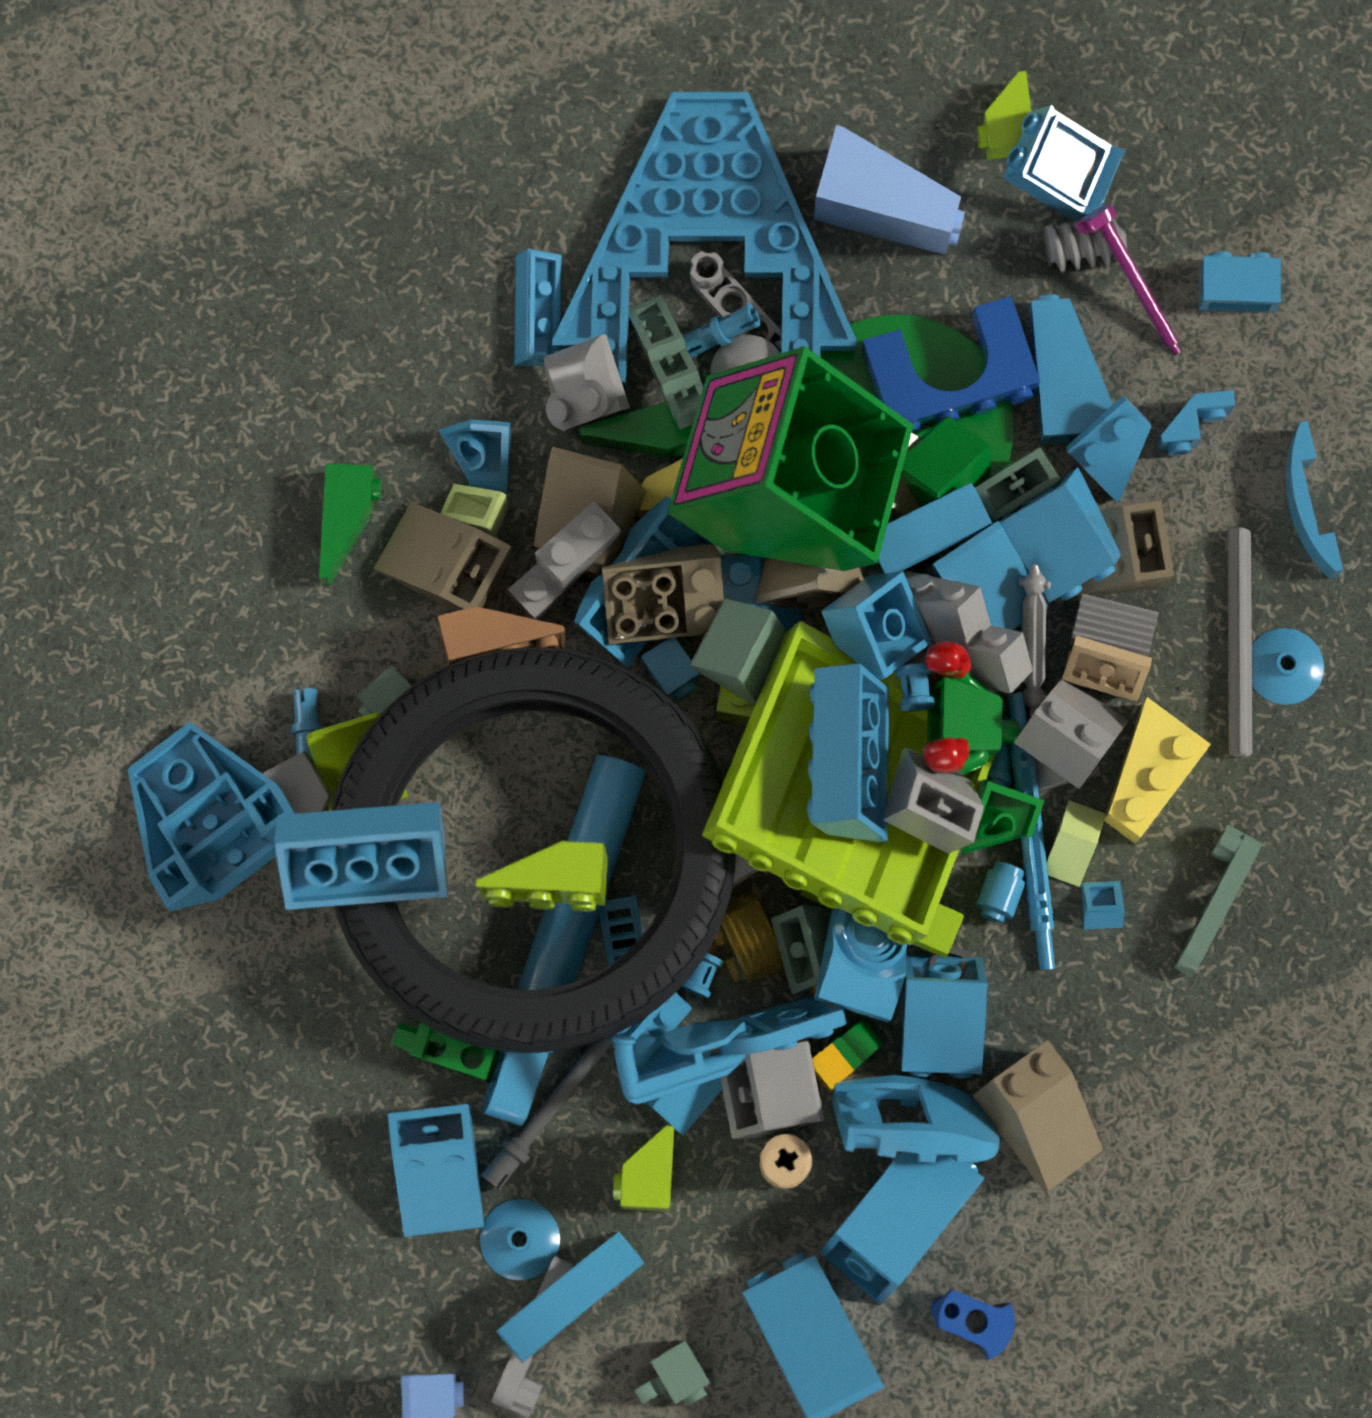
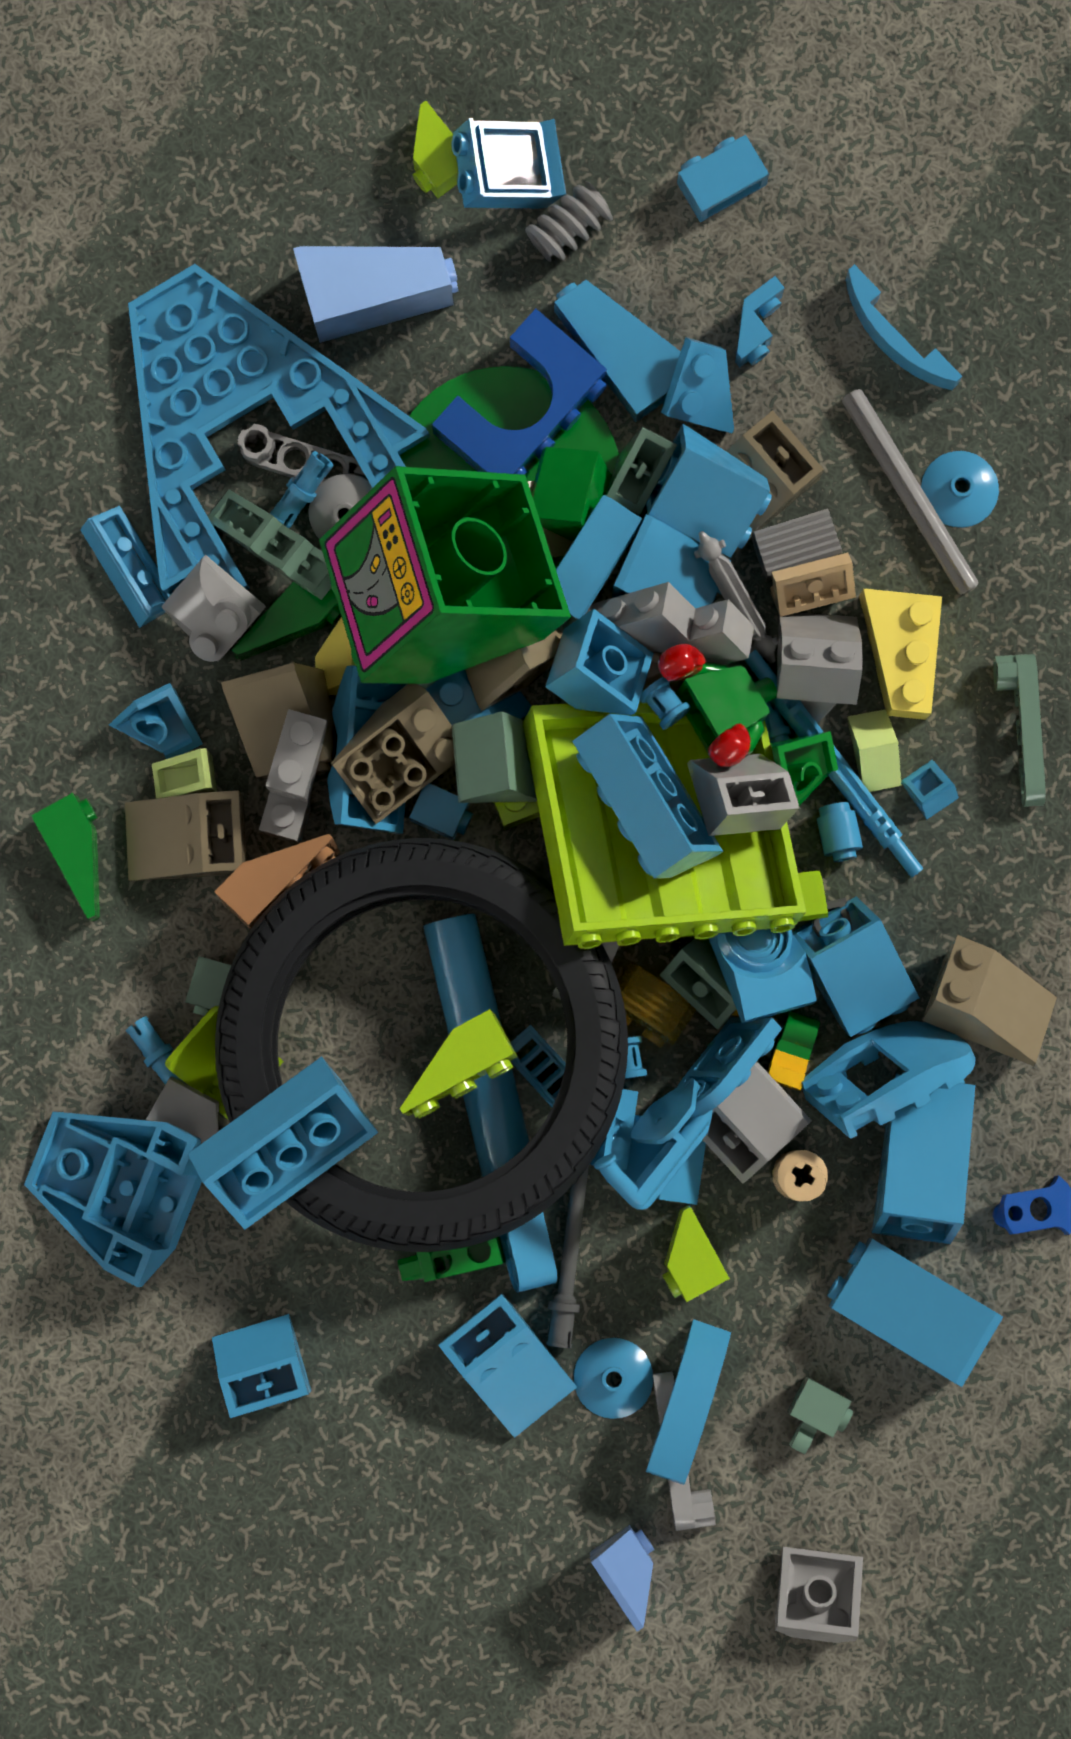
camera: 30 degrees left, 5 degrees up
(227, 1041) = (260, 1366): none -> dark azure slope
(1101, 220) = (573, 194): magenta piece -> none

